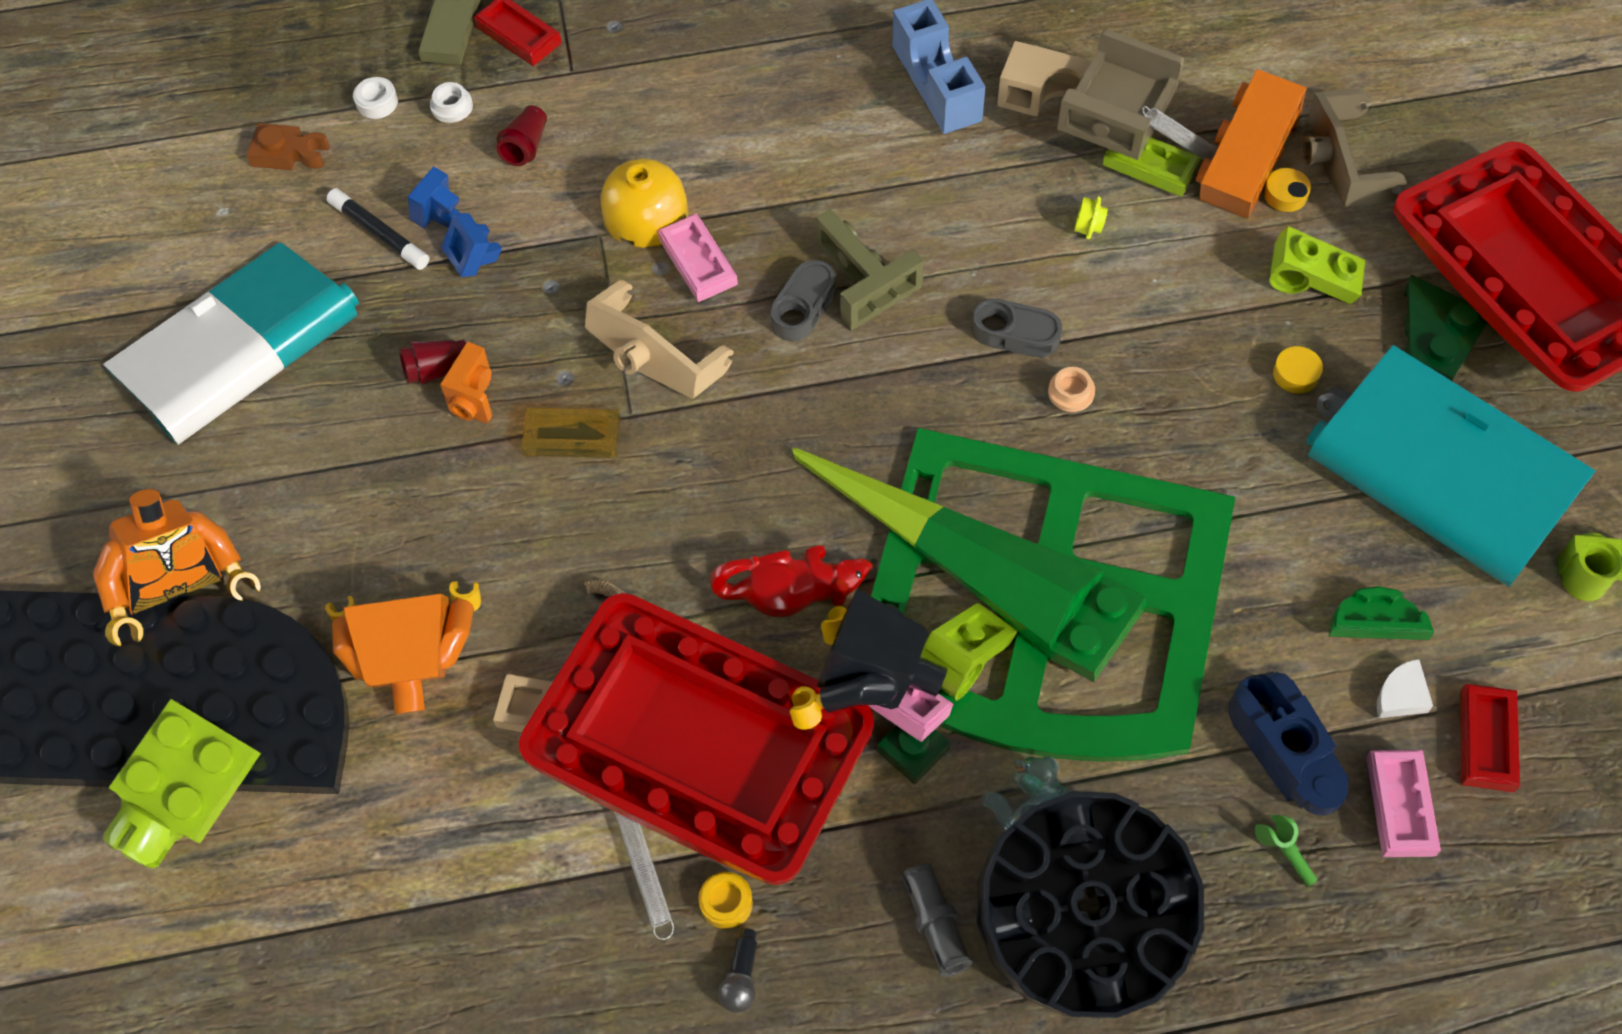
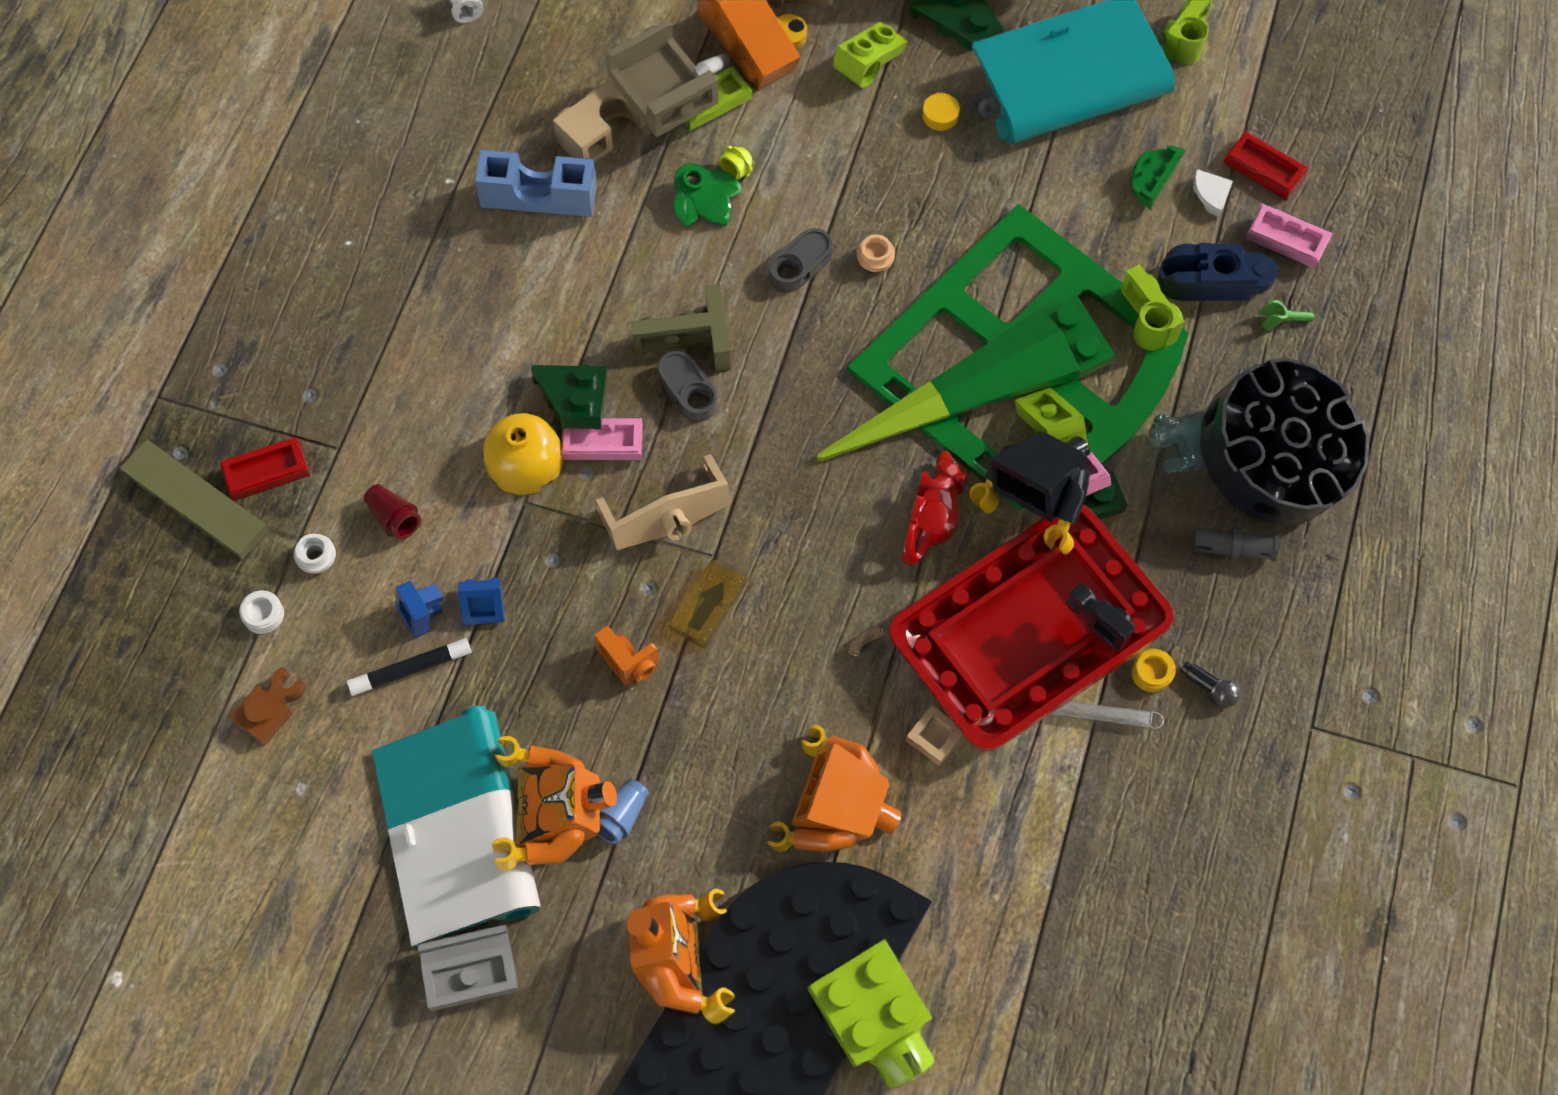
camera: 65 degrees left, 5 degrees up
(94, 415) = (468, 968): none -> light grey plate
(274, 398) = (554, 808): none -> orange torso
(304, 460) = (618, 820): none -> medium blue cone
(428, 359) = (580, 676): dark red cone -> none
(726, 804) = (1106, 621): none -> black plate
(729, 210) = (573, 393): none -> dark green wing
(1033, 213) = (706, 199): none -> green plate
(1180, 686) = (1153, 307): none -> lime plate

